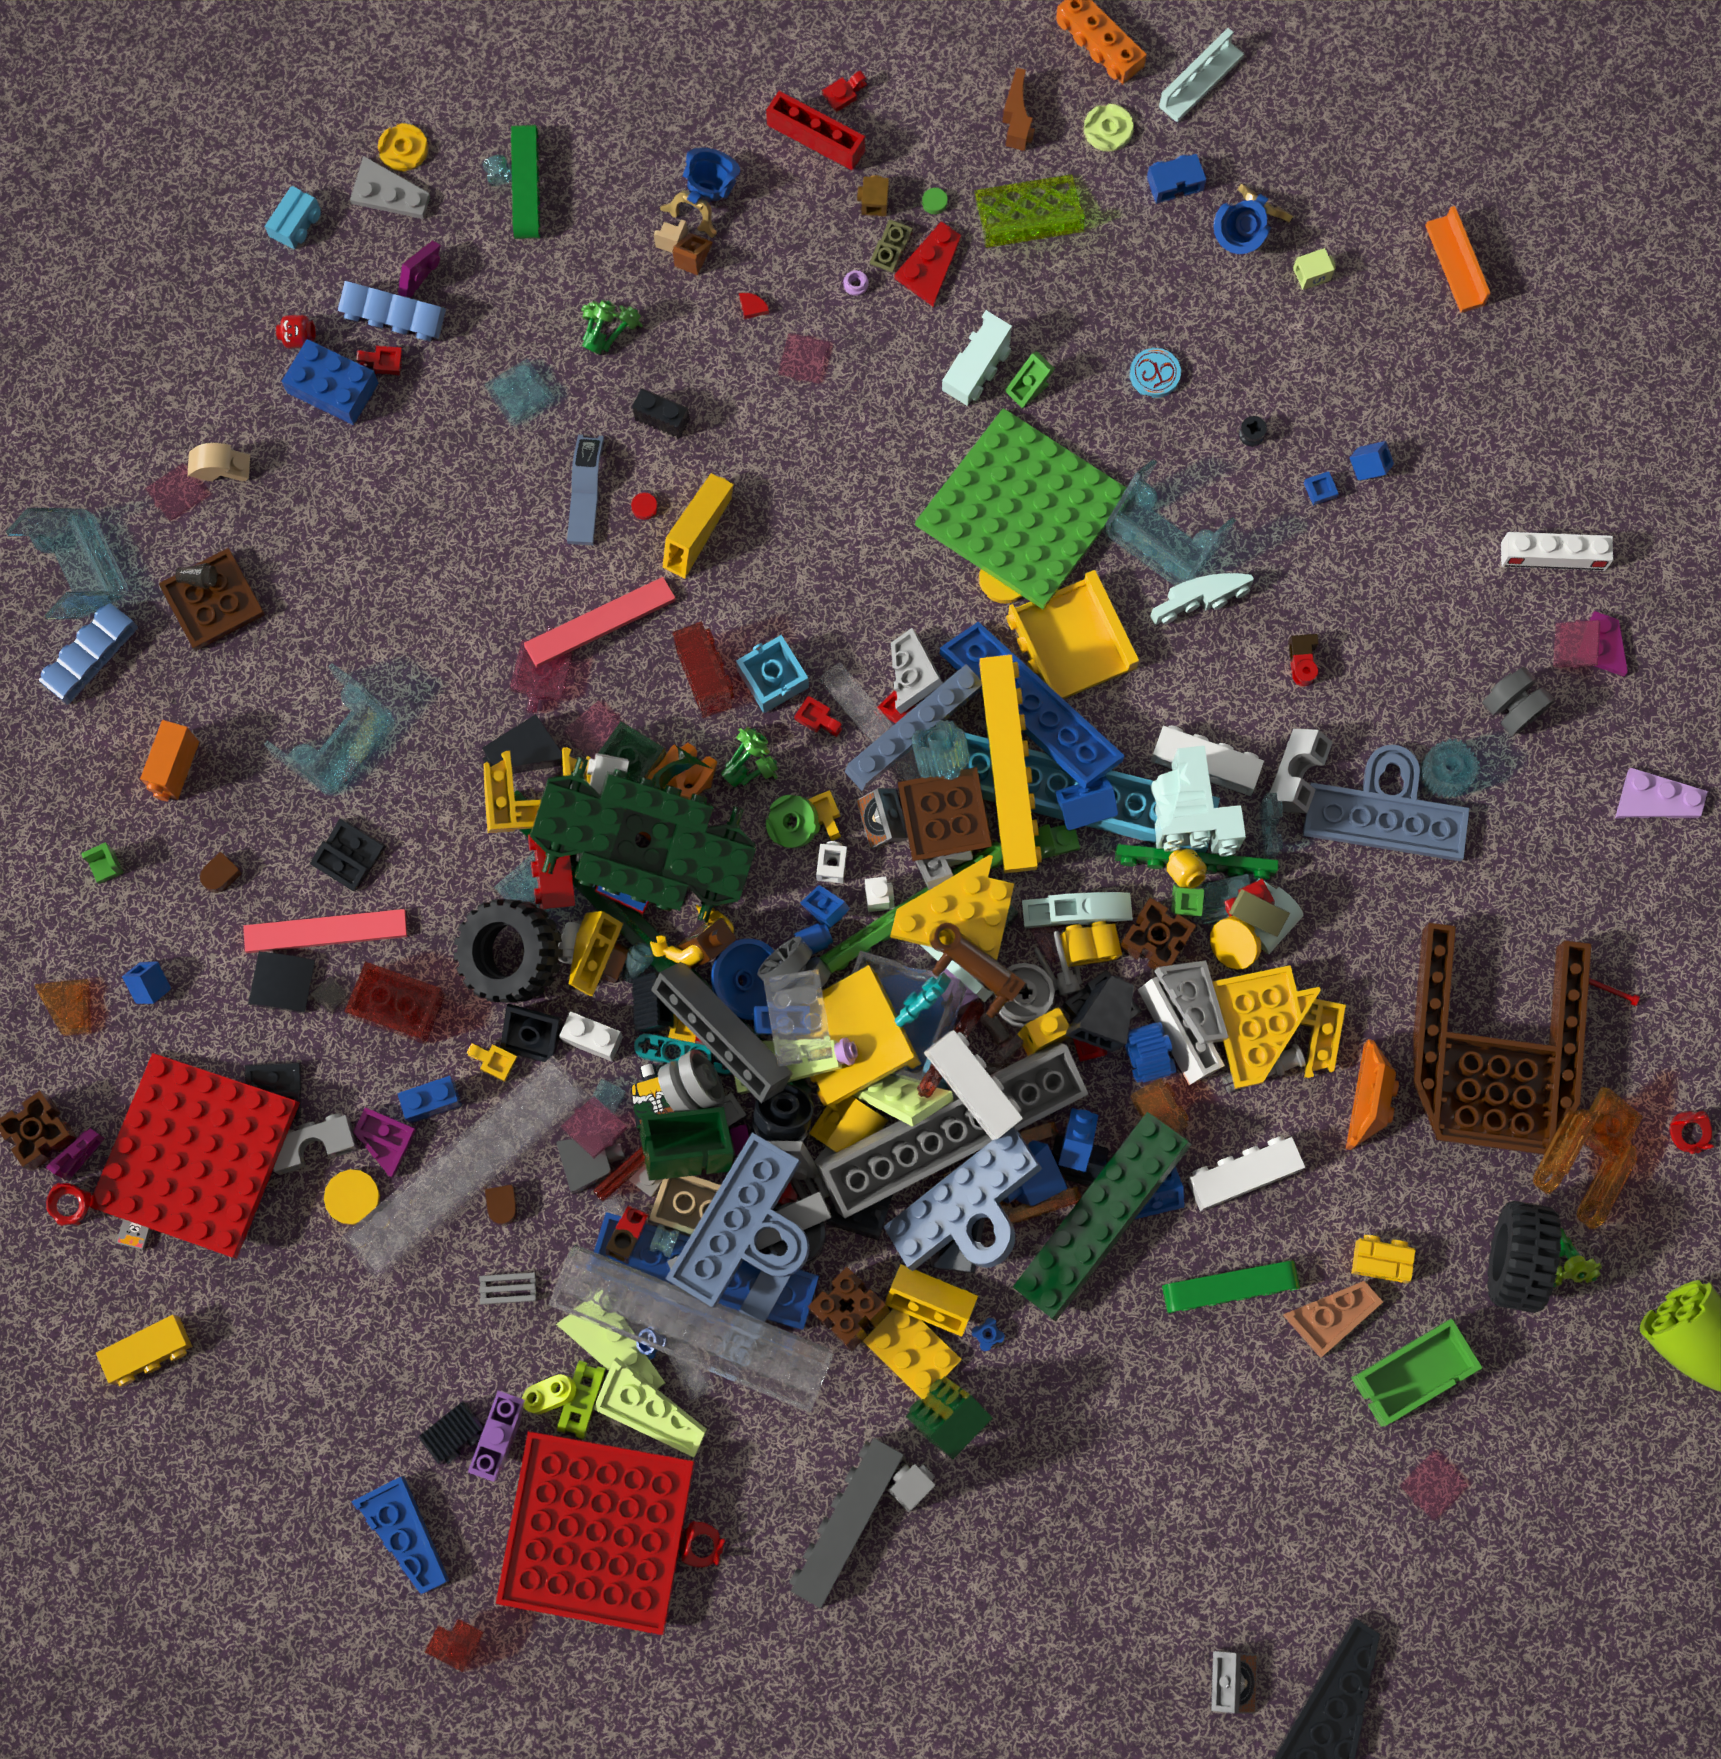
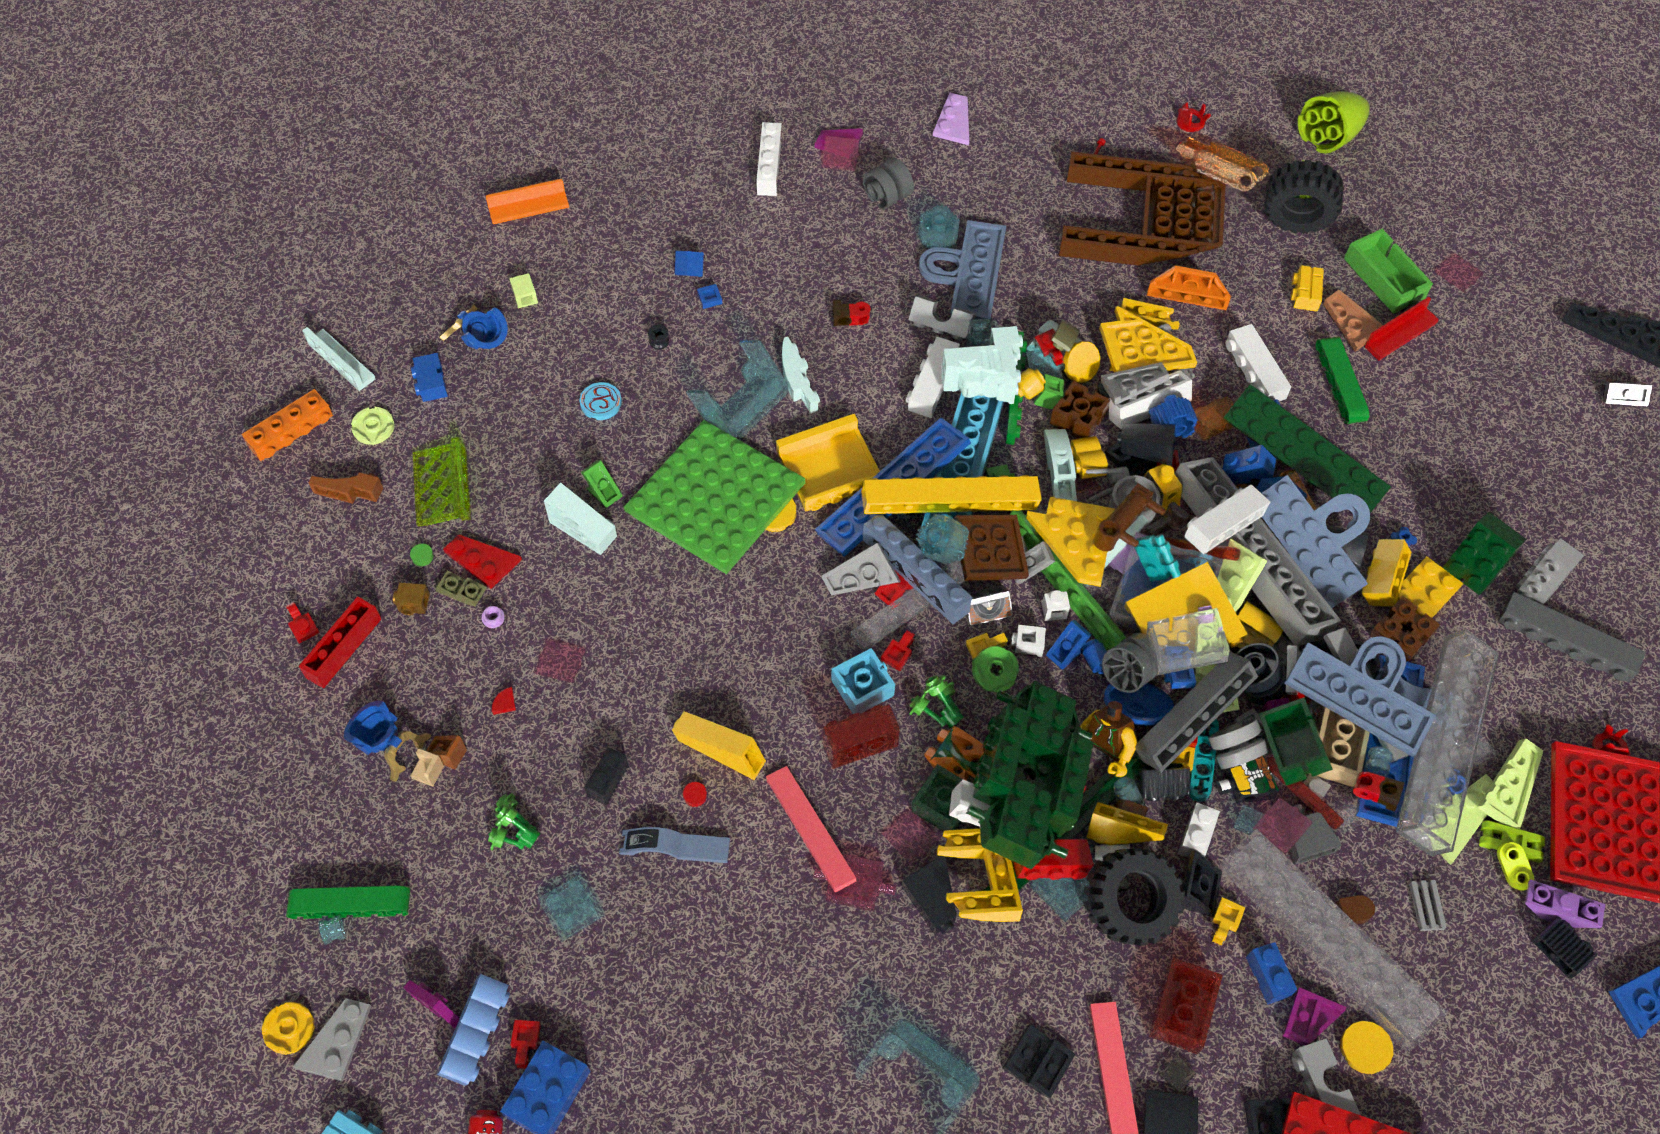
camera: 90 degrees left, 15 degrees down
(1087, 805) = (982, 444): blue panel -> none
(1320, 1383) = (1401, 330): none -> red panel

